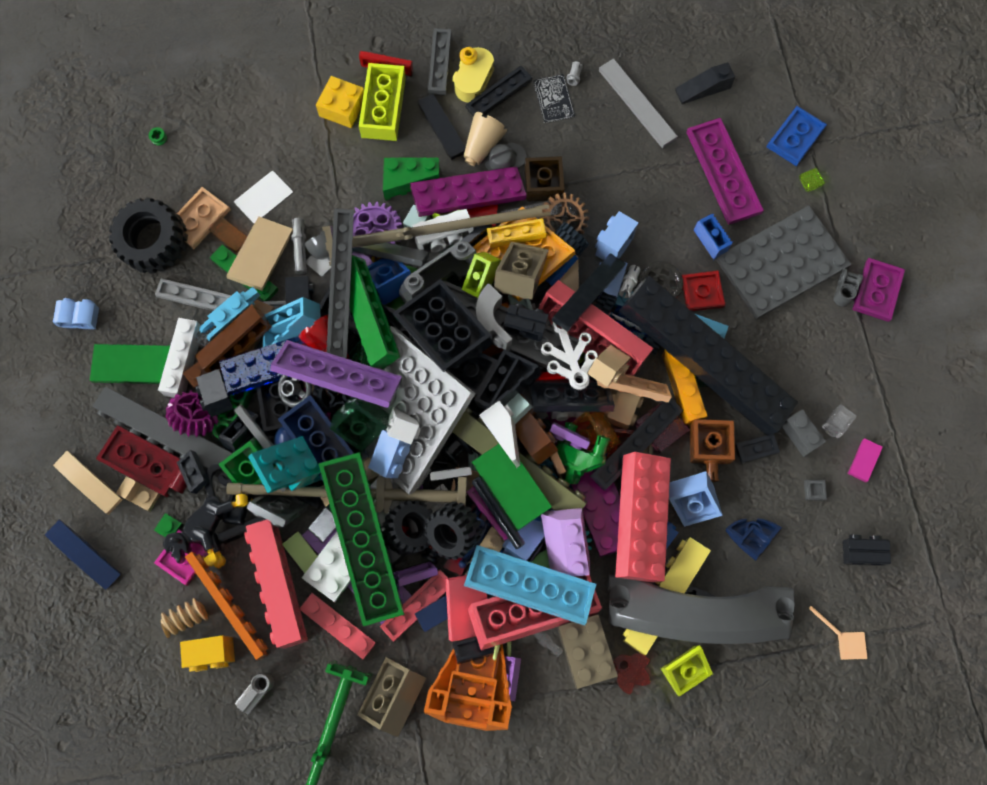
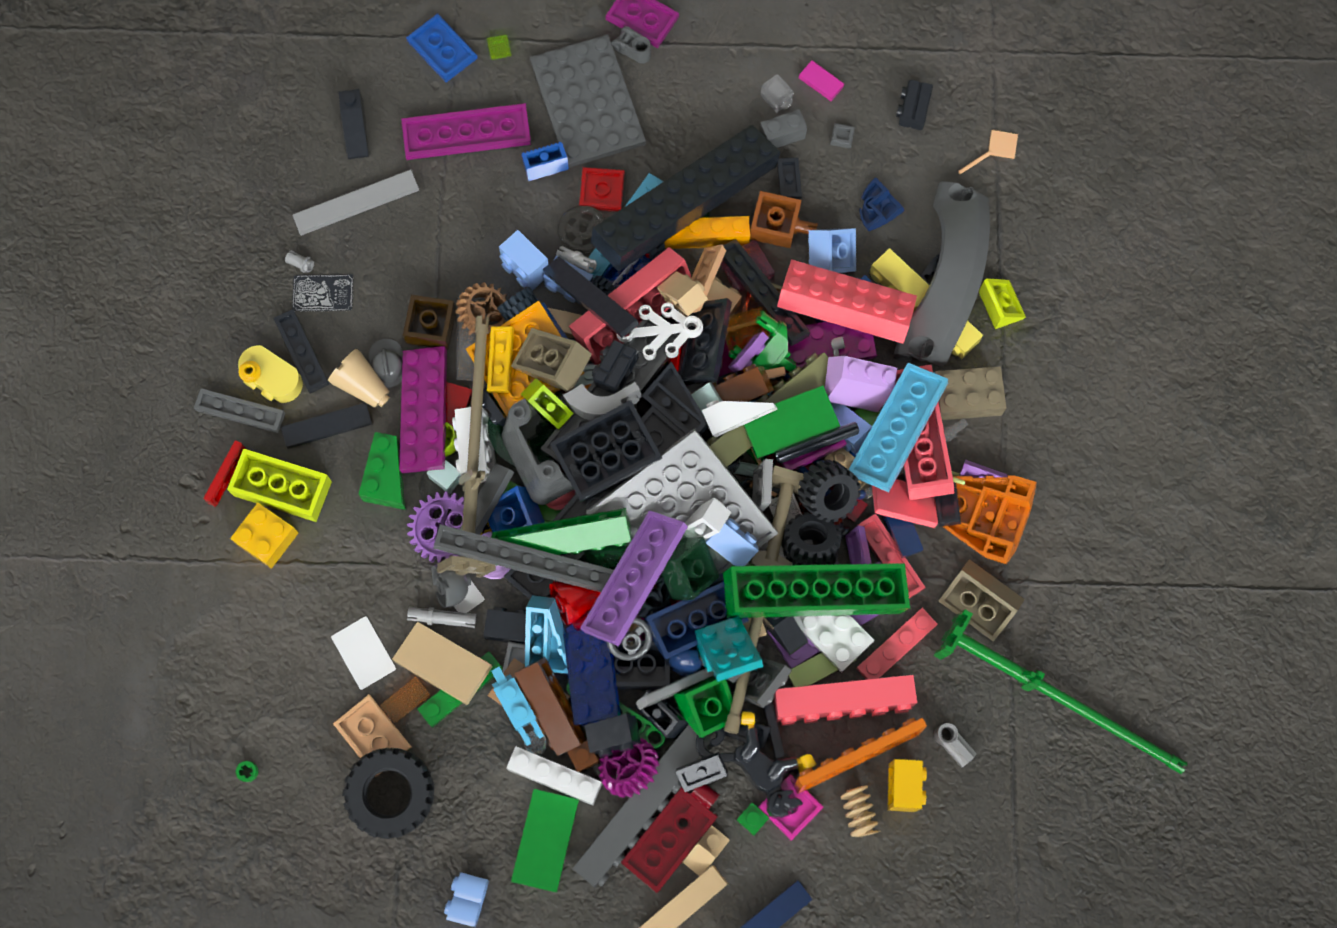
camera: 80 degrees left, 0 degrees up
(190, 295) = (475, 753): light grey tile -> none
(600, 515) = (837, 343): none -> light grey hand
(634, 673) = (995, 353): clear red plate -> none

